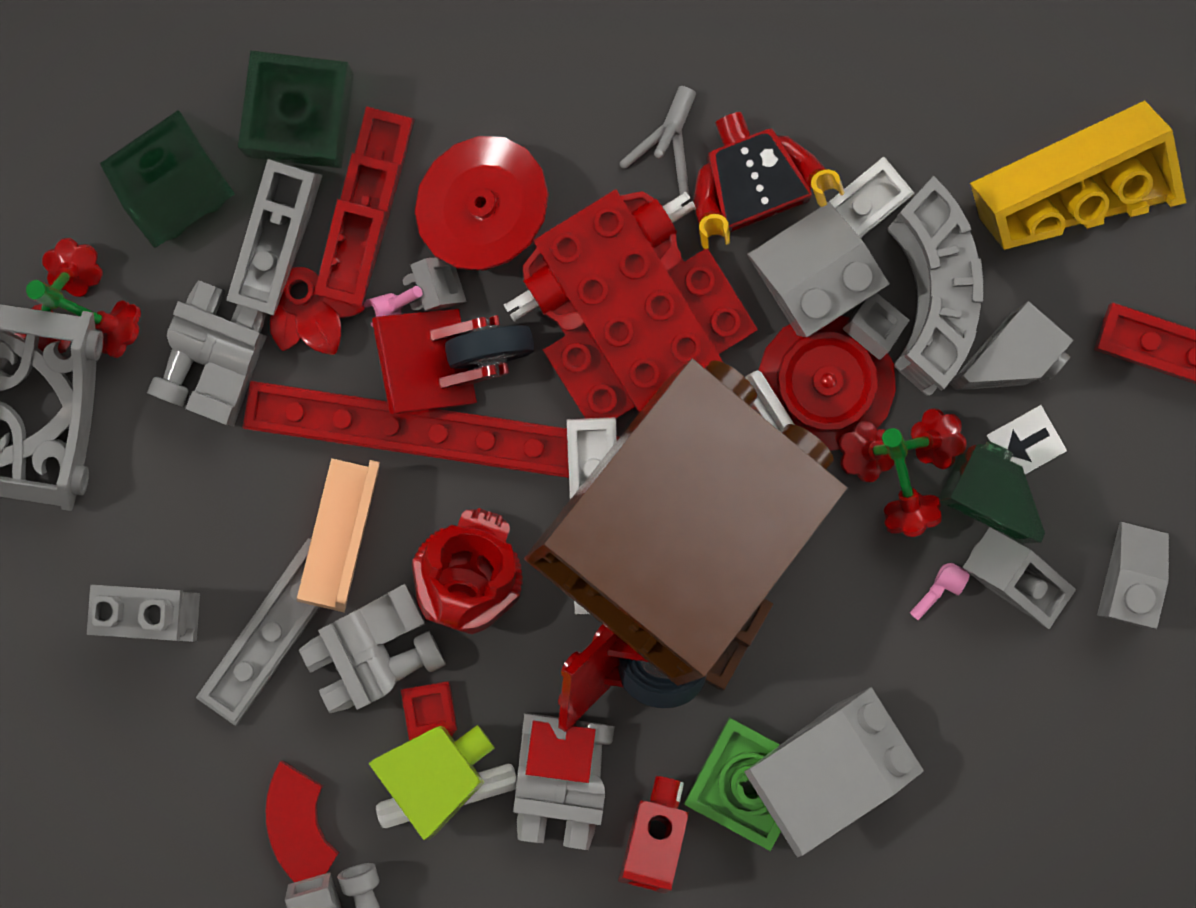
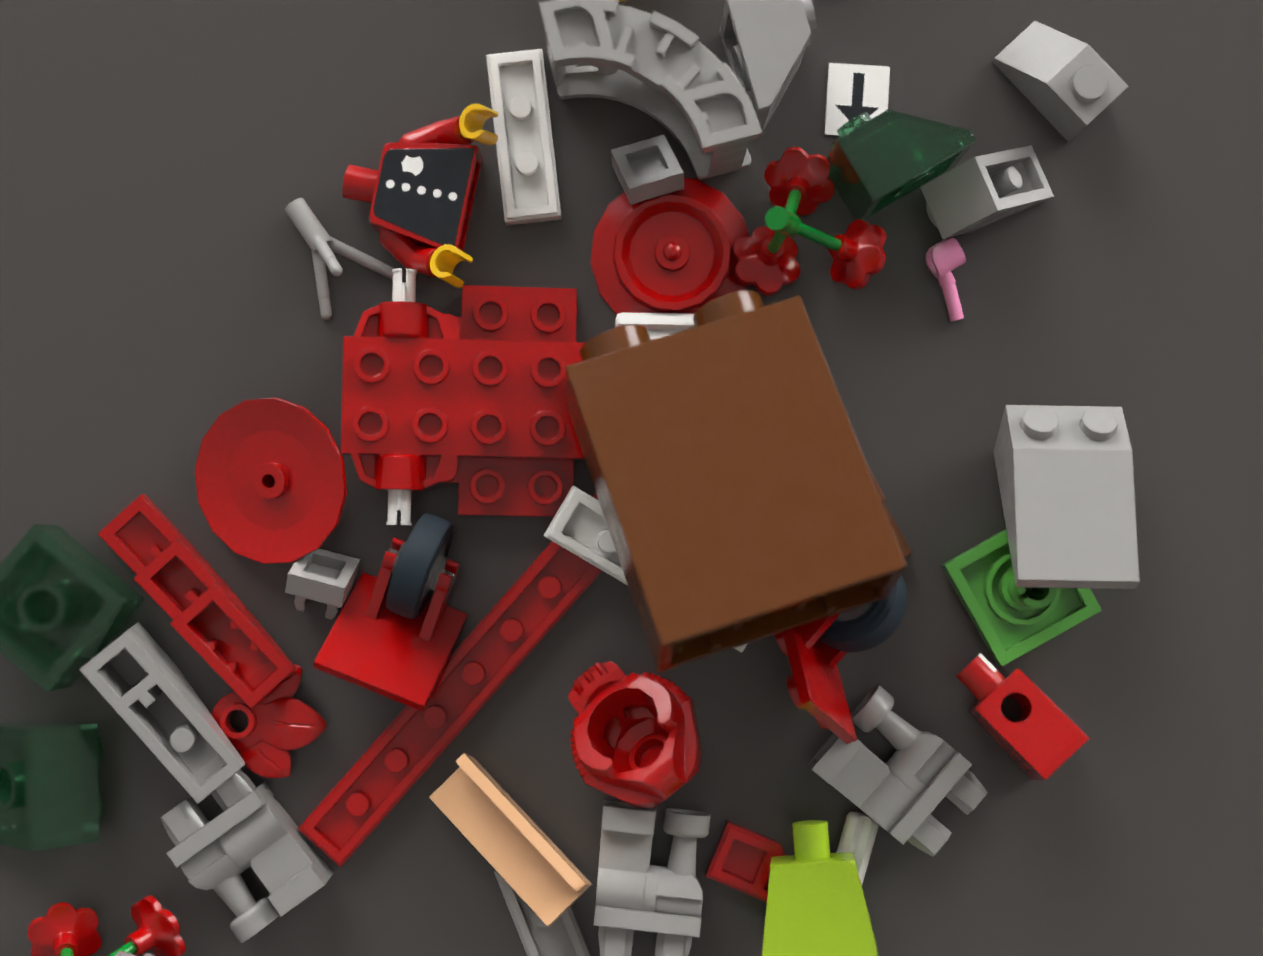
camera: 65 degrees left, 0 degrees up
(391, 304) = (313, 635): bright pink hand -> none
(560, 758) = (879, 762): red sticker -> none
(817, 270) = (557, 189): light grey slope -> none

